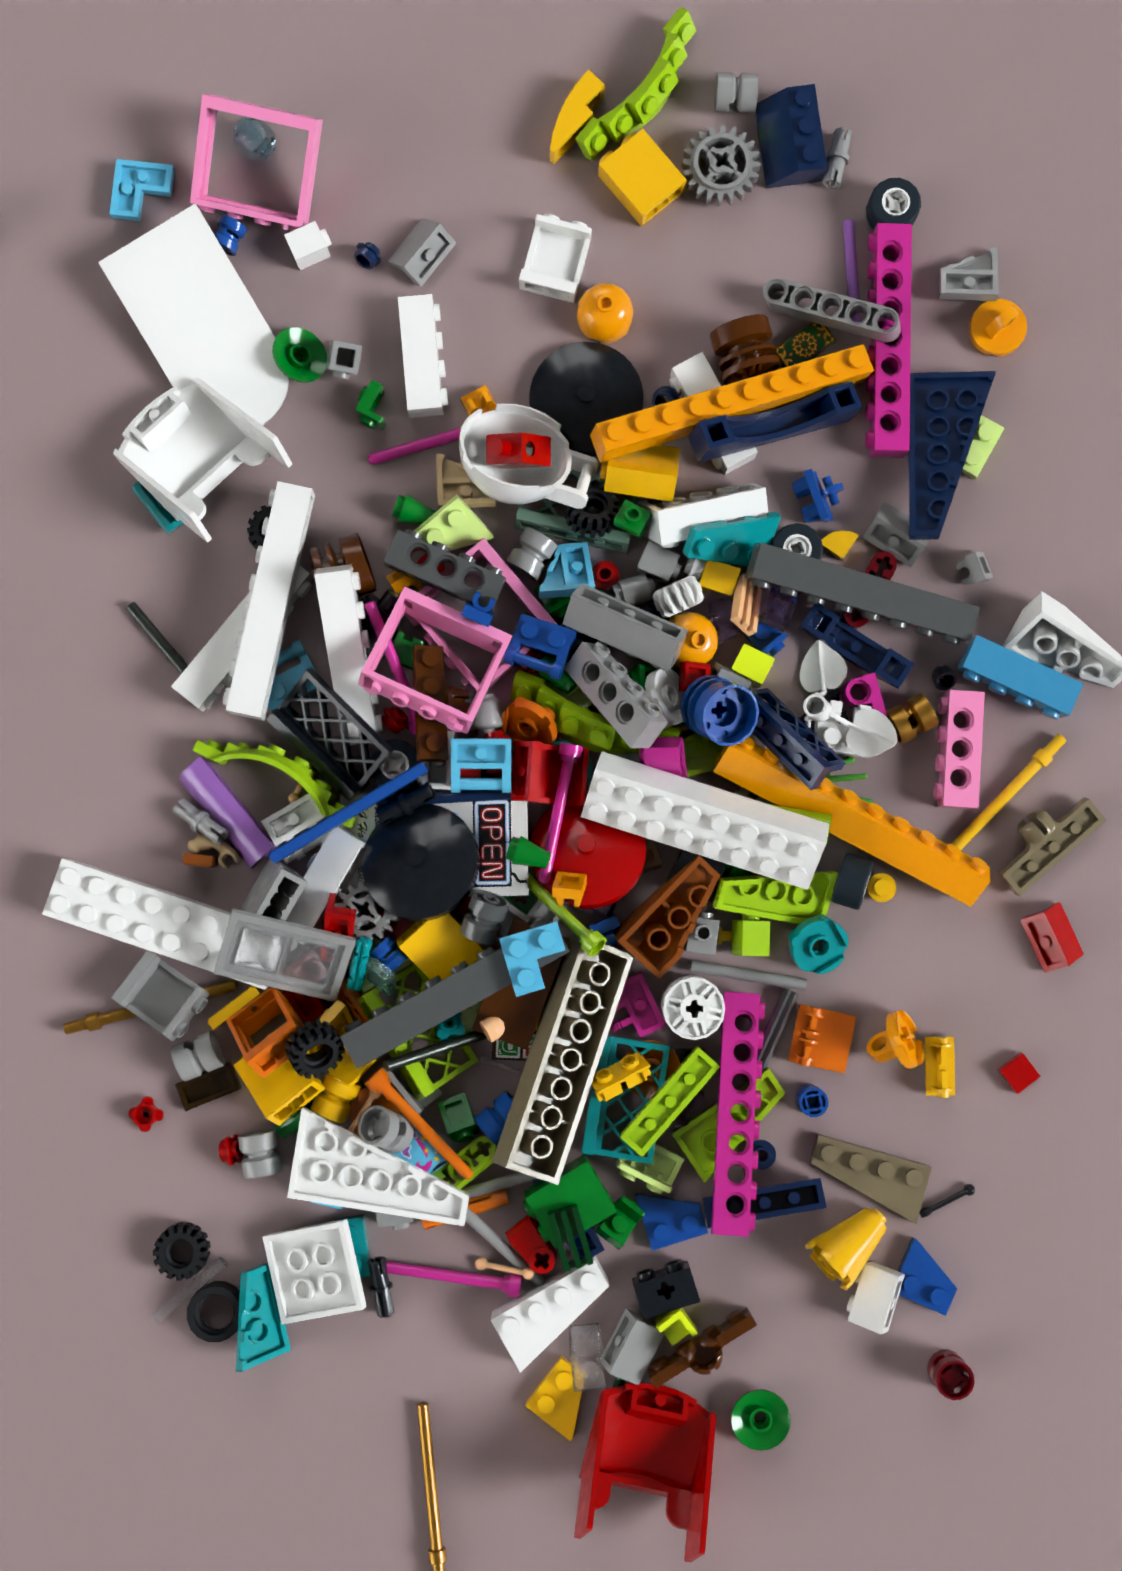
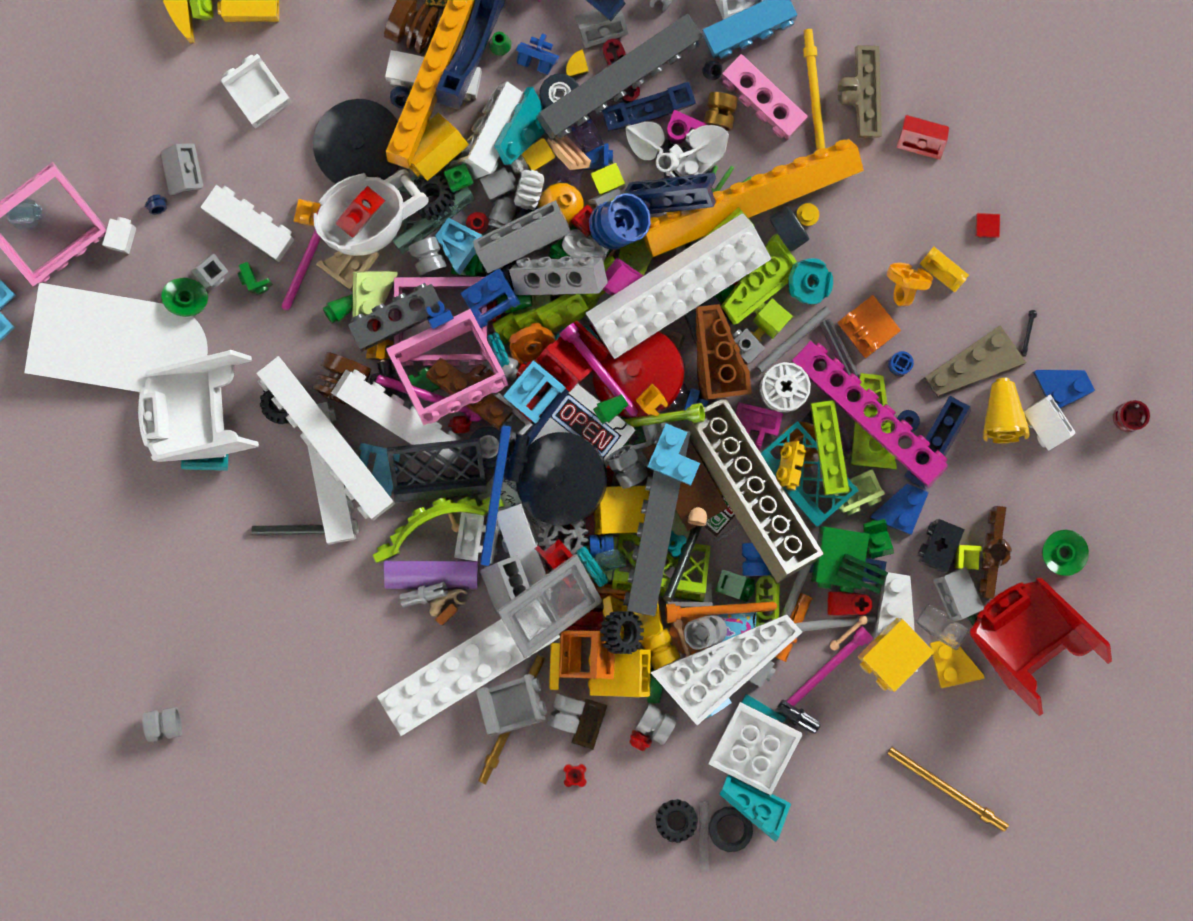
camera: 50 degrees left, 0 degrees up
(229, 234) = (71, 277): blue wheel -> none
(496, 696) = (498, 349): none -> teal axle
(516, 1339) = (894, 655): none -> yellow brick
(605, 313) = (315, 89): light orange cylinder -> none
(794, 456) = (500, 48): none -> green cone

